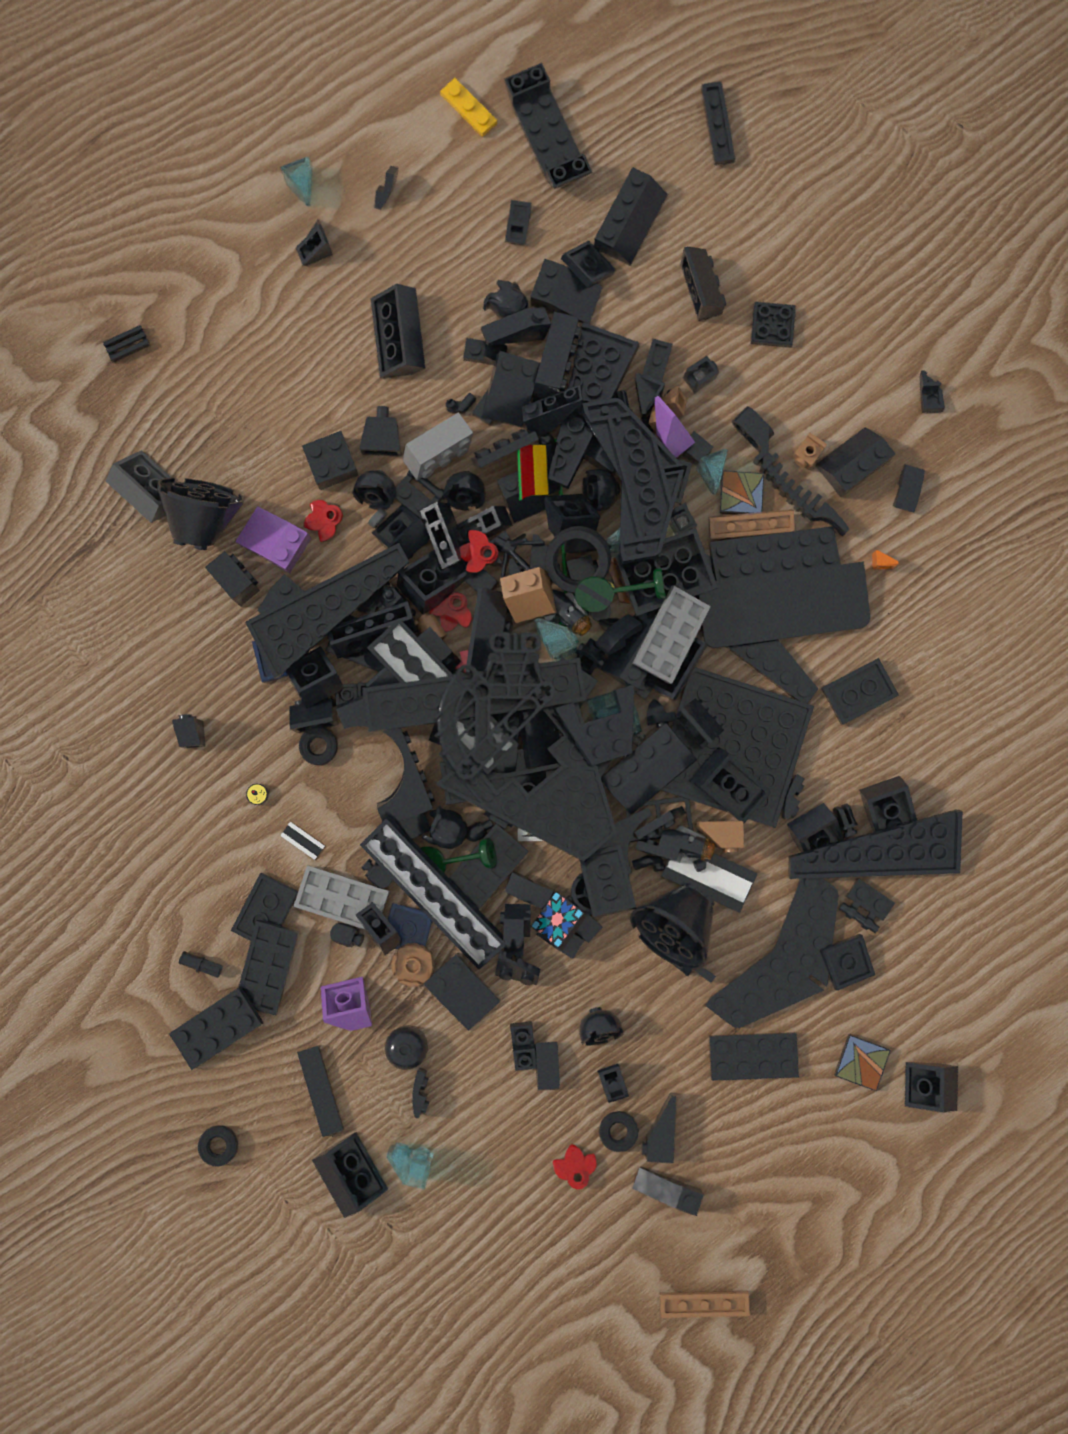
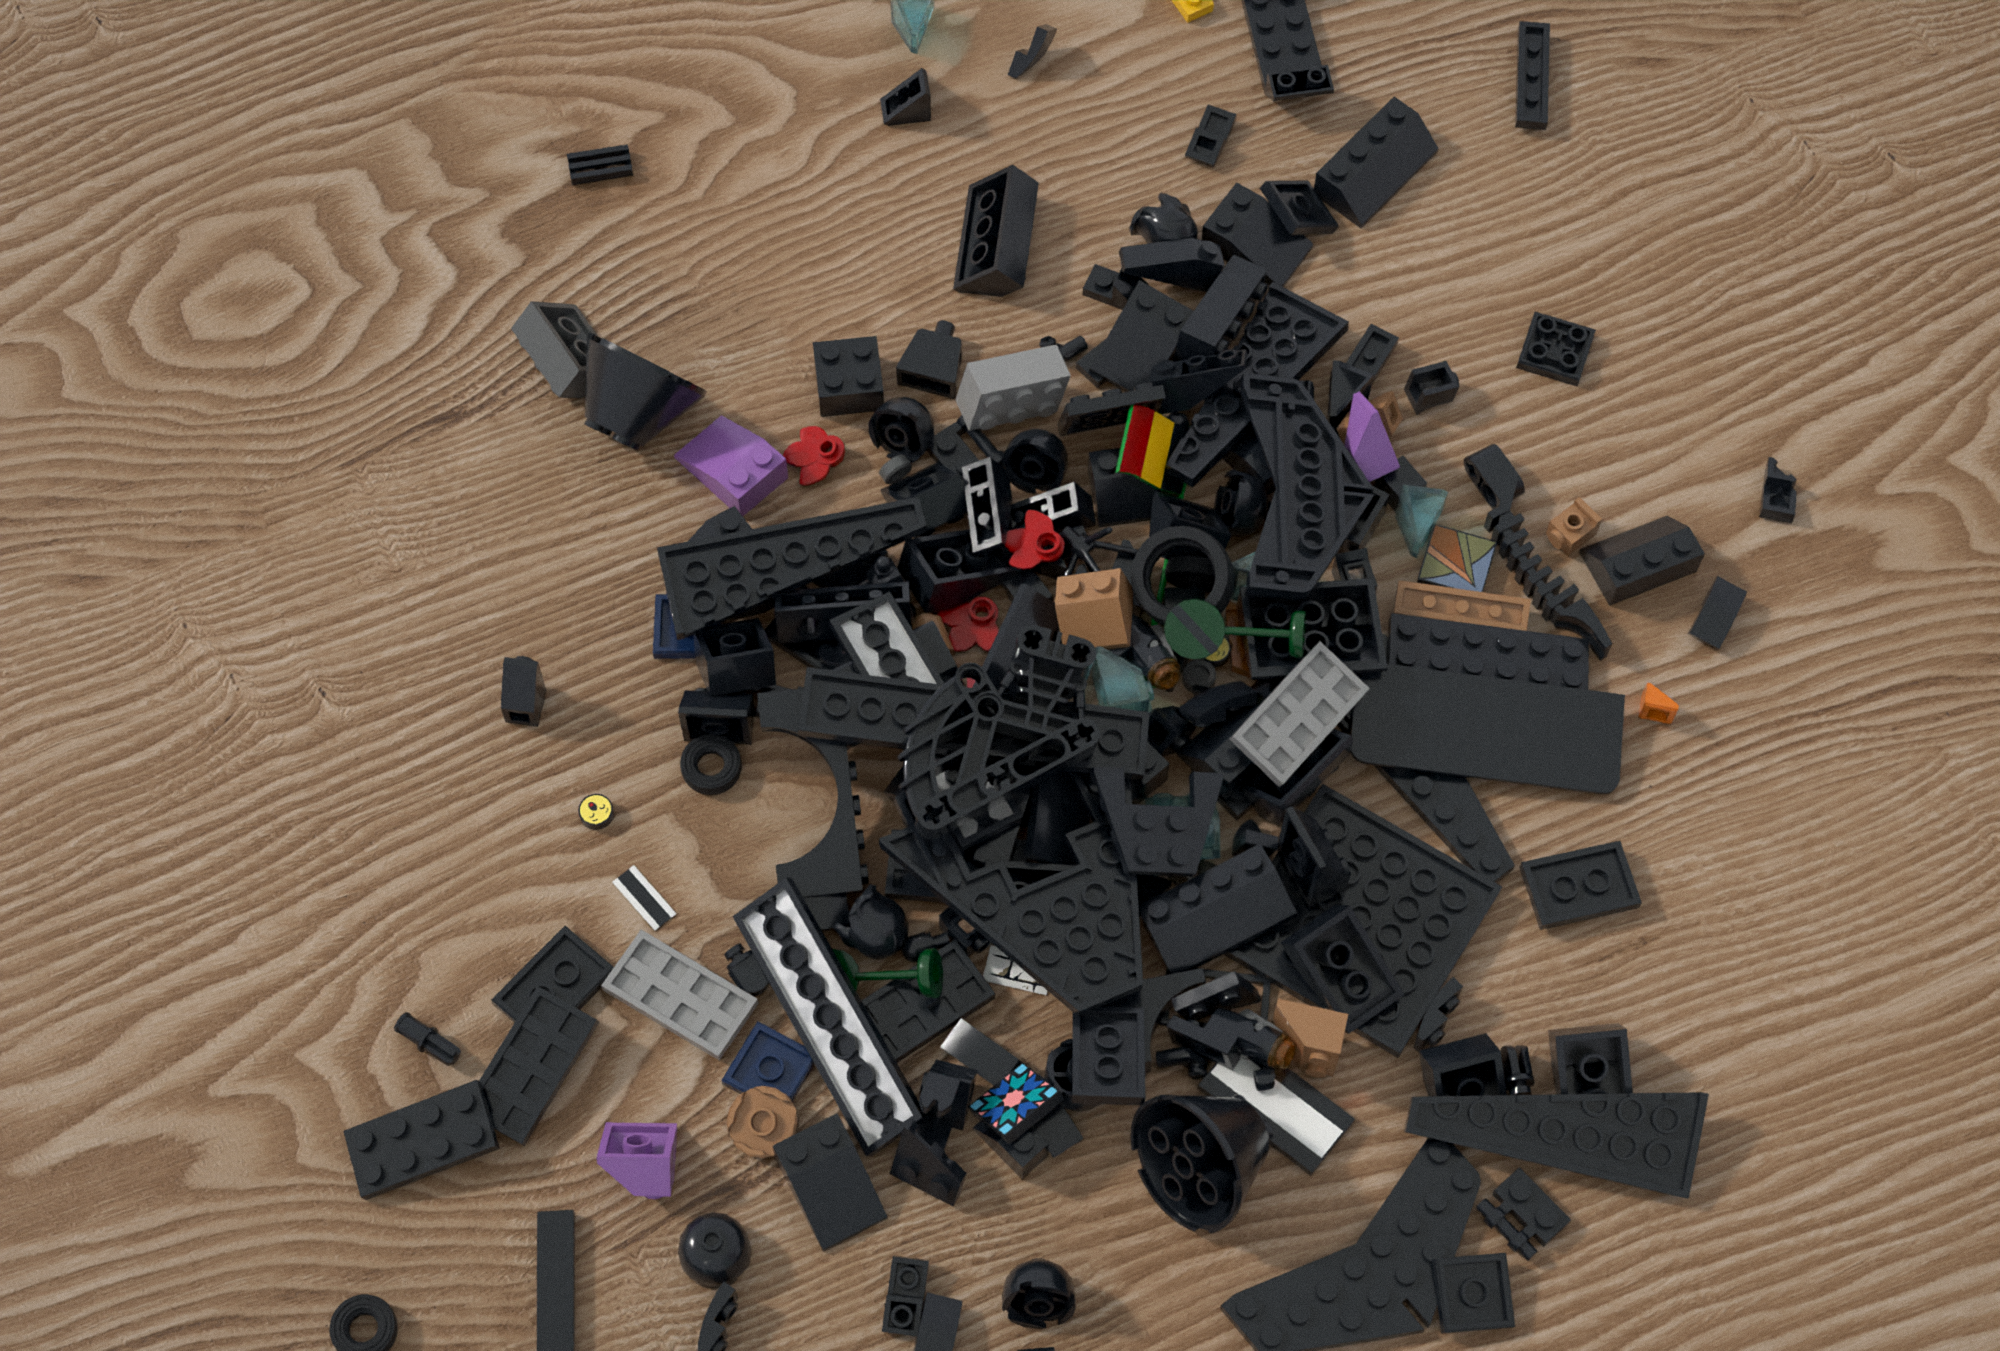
camera: 10 degrees right, 20 degrees down
(230, 575) = (656, 495): black brick -> none
(346, 935) = (671, 1051): black arm -> none
(379, 928) = (727, 1046): black slope -> none
(702, 283) = (1461, 268): black slope -> none
(703, 972) = (1224, 1243): black slope -> none

